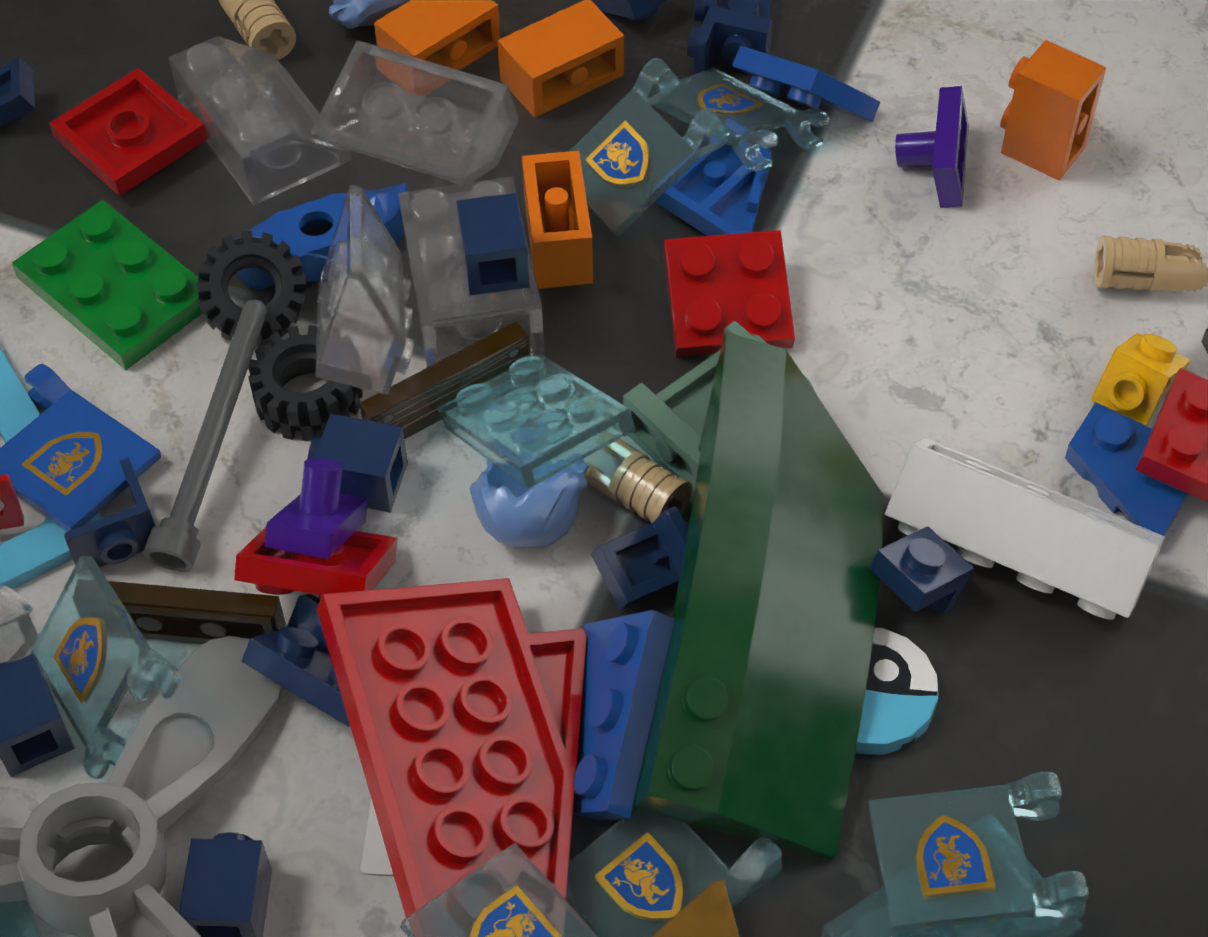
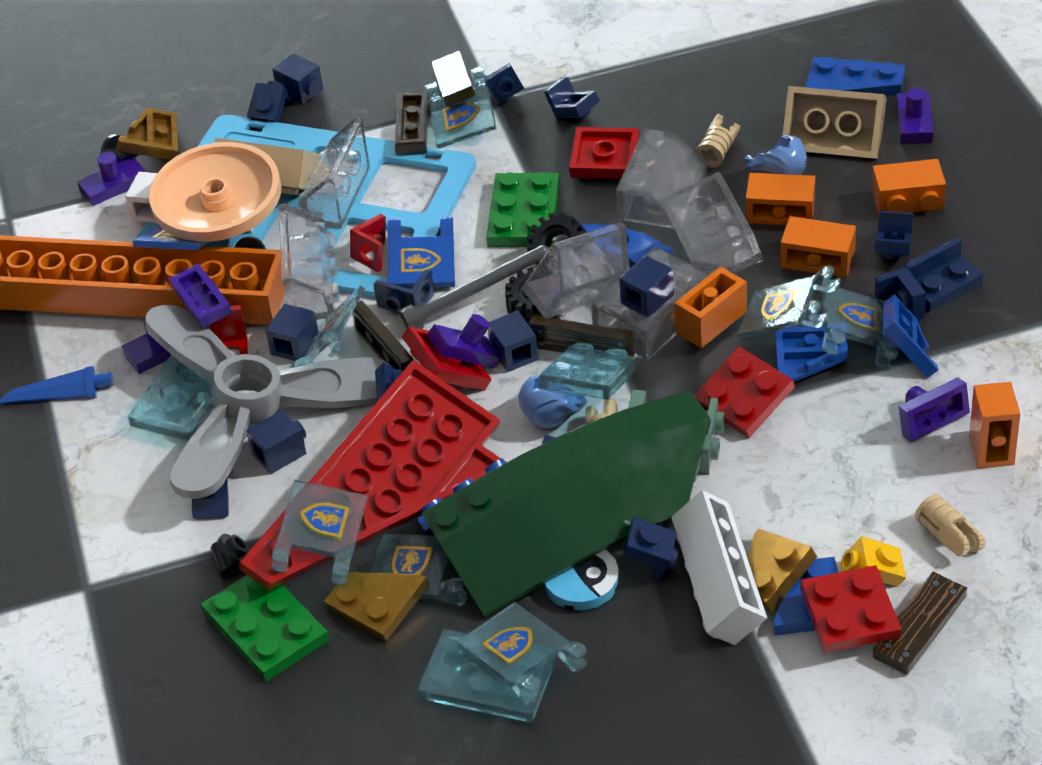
camera: 55 degrees right, 10 degrees down
(1061, 456) = (777, 565): none -> pearl gold wing

